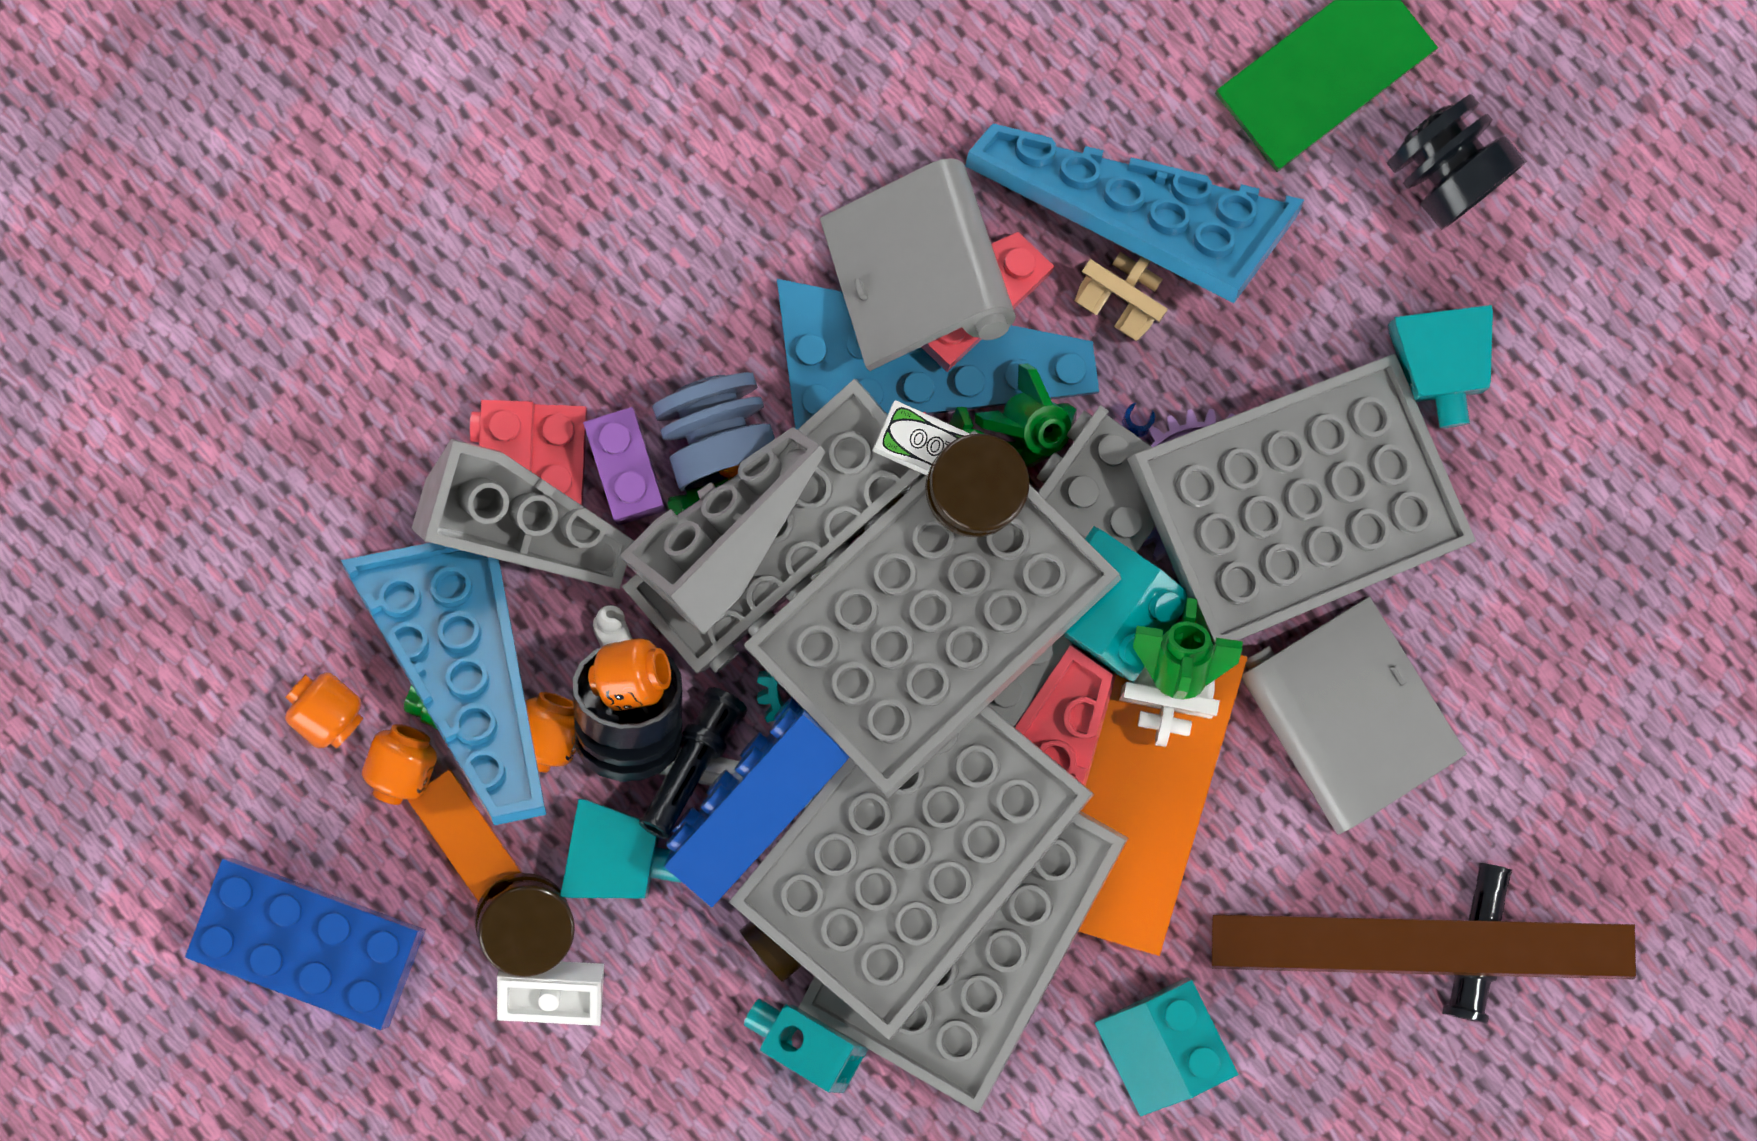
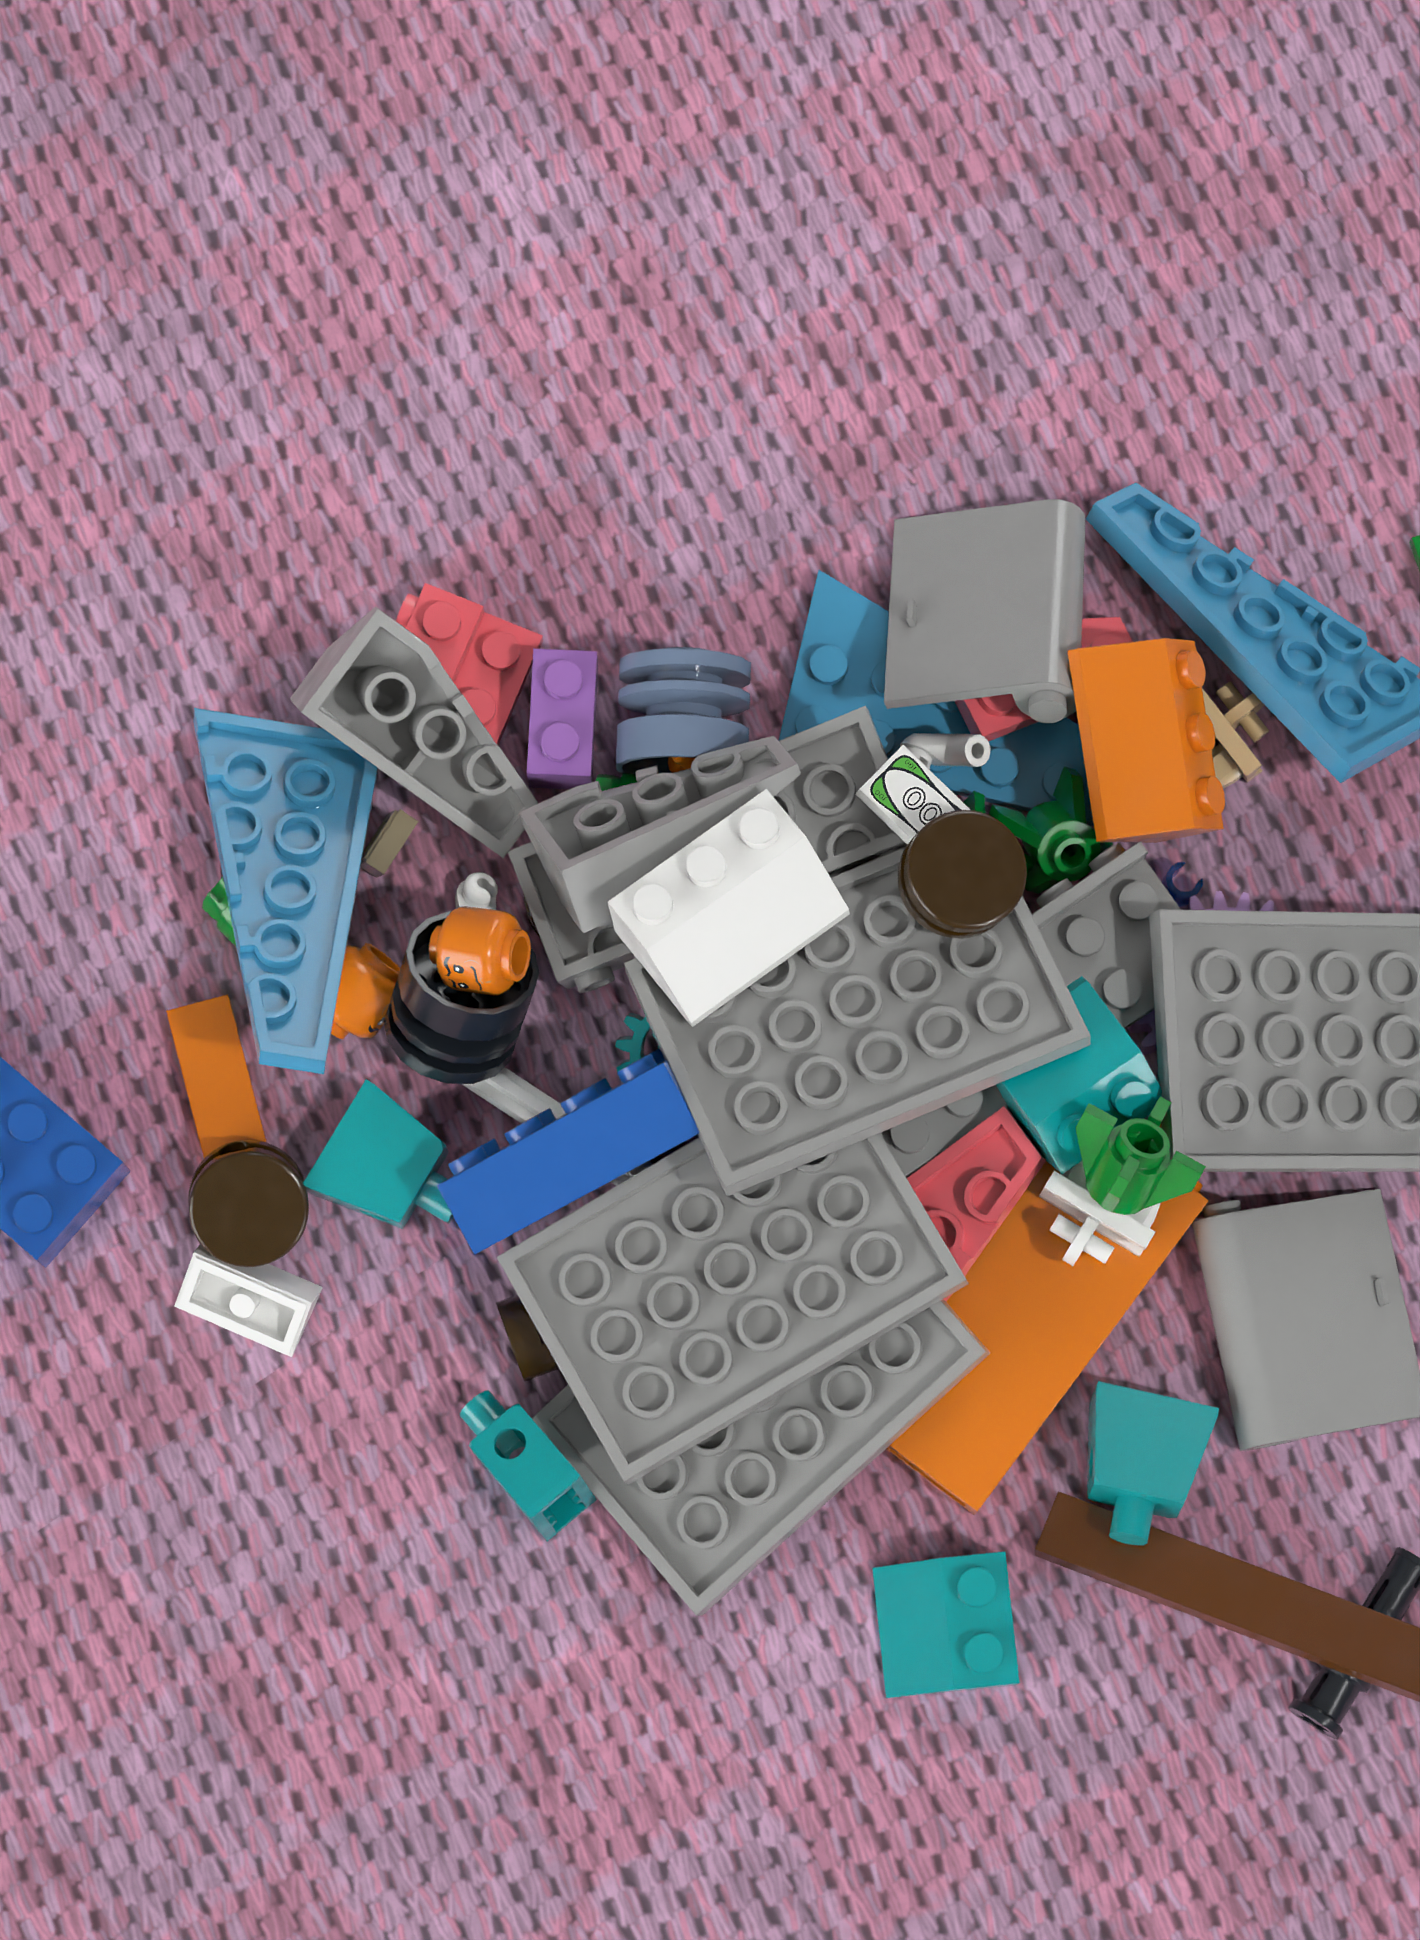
camera: 20 degrees right, 5 degrees down
(323, 710) = (108, 872): orange head -> none
(399, 764) = (172, 966): orange head -> none
(526, 609) = (387, 842): none -> dark tan tile
(703, 742) = (534, 1069): black pin -> none
(808, 576) = (728, 908): none -> white slope
(925, 384) = (948, 749): none -> white arm
(1075, 324) = (1146, 740): none -> orange slope
(1267, 866) = (1143, 1455): none -> teal torso

